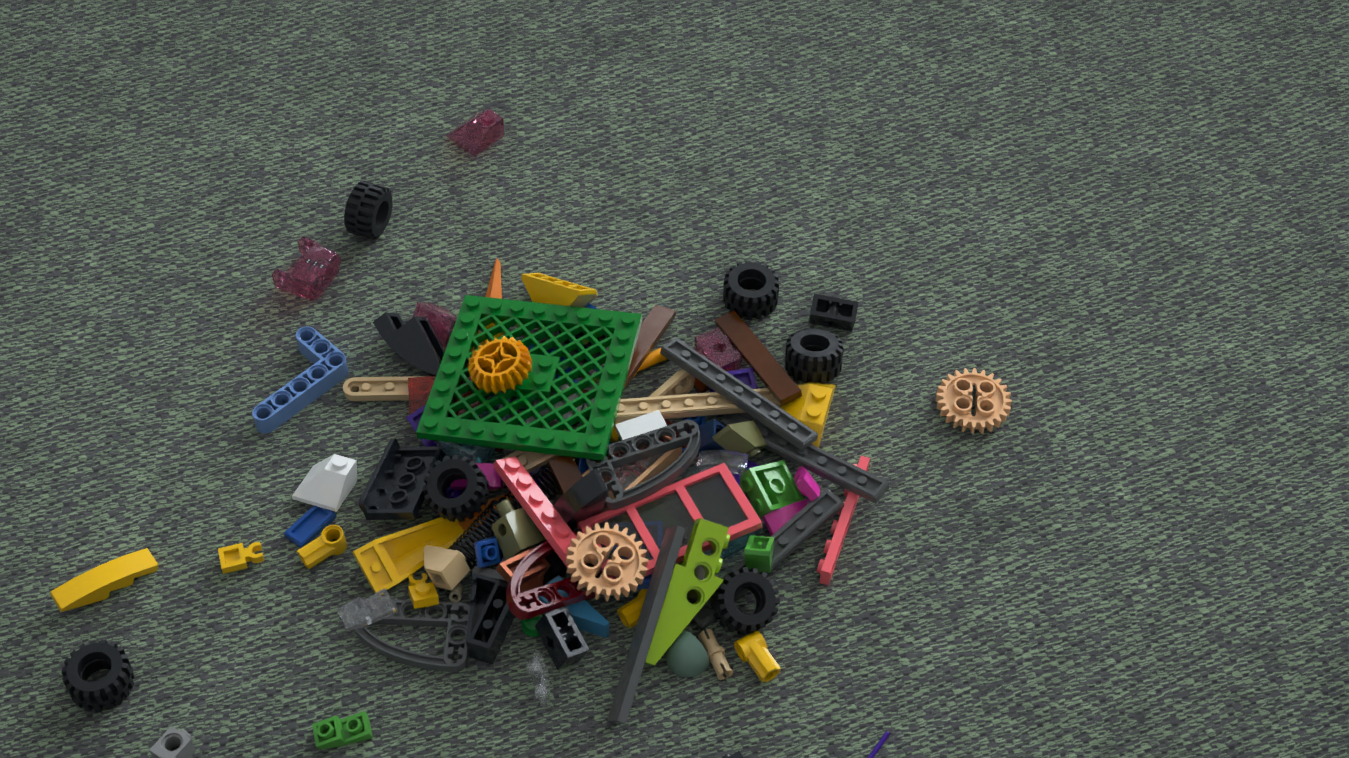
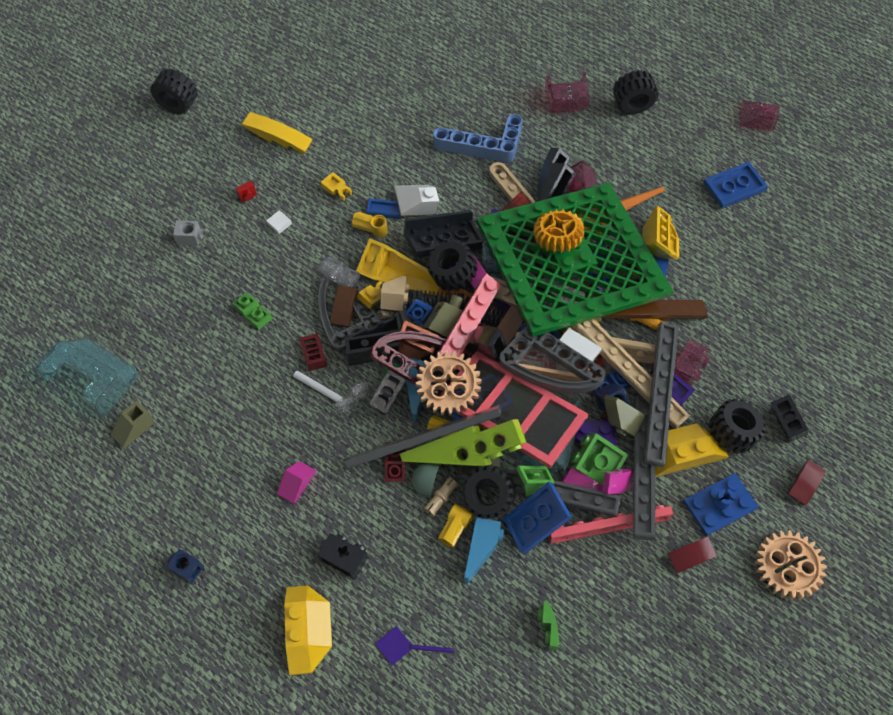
camera: 60 degrees right, 10 degrees up
(104, 691) = (212, 178): black tyre -> none
(166, 655) = (246, 191): none -> red plate
(237, 643) = (278, 222): none -> white tile
(415, 628) = (343, 306): none -> reddish brown slope
(458, 702) = (315, 363): none -> dark red slope
(497, 709) = (317, 386): none -> white bar
(544, 201) = (735, 185): none -> blue plate
(652, 681) = (394, 467): none -> dark red slope
(734, 460) = (597, 415): clear slope -> none
(751, 276) = (759, 364): black tyre -> none
(758, 358) = (706, 390): reddish brown tile -> none
(793, 640) = (484, 542): none -> dark azure slope
(802, 572) = (537, 517): none -> blue plate
(879, 420) = (720, 504): none -> blue plate
(903, 339) = (806, 482): none -> dark red slope
(908, 625) = (548, 620): none -> bright green slope
(917, 470) = (692, 554): none -> dark red slope

